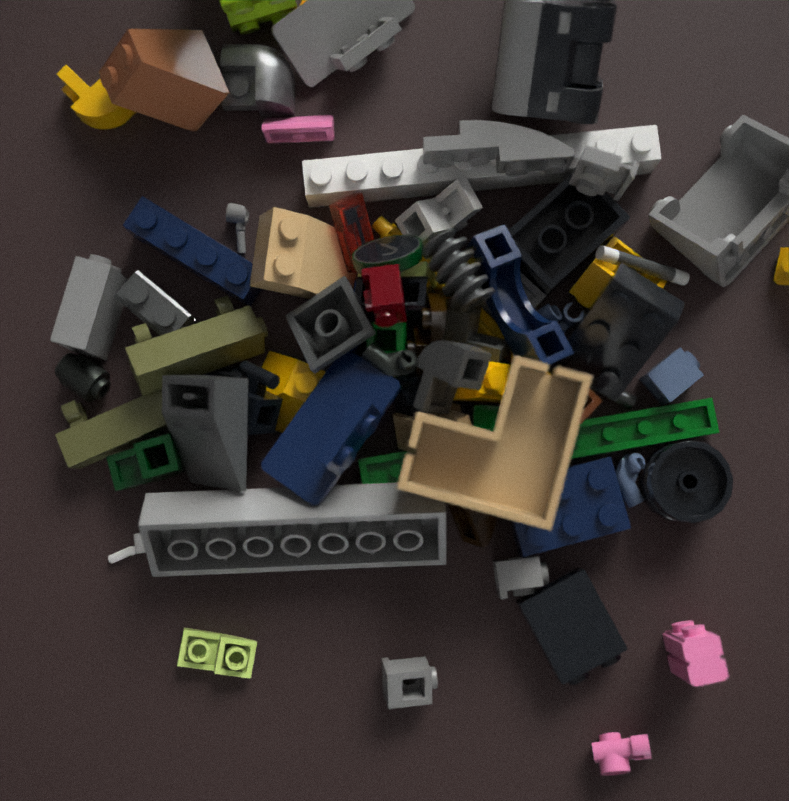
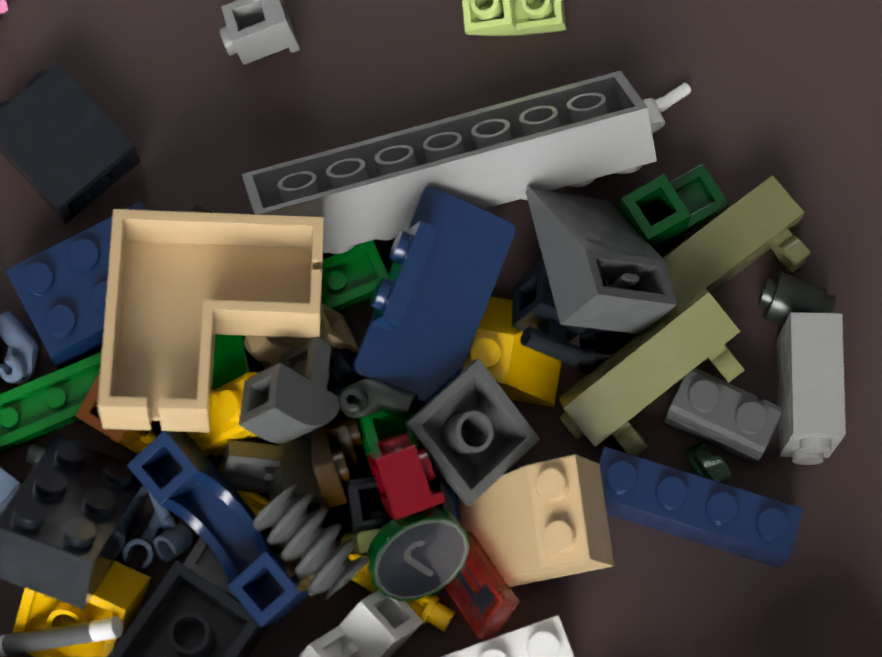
camera: 160 degrees right, 10 degrees down
(176, 274) = (706, 465): none -> clear green tile
(239, 215) = (651, 583): light grey hand -> none
(519, 575) = (143, 182): light grey brick -> none

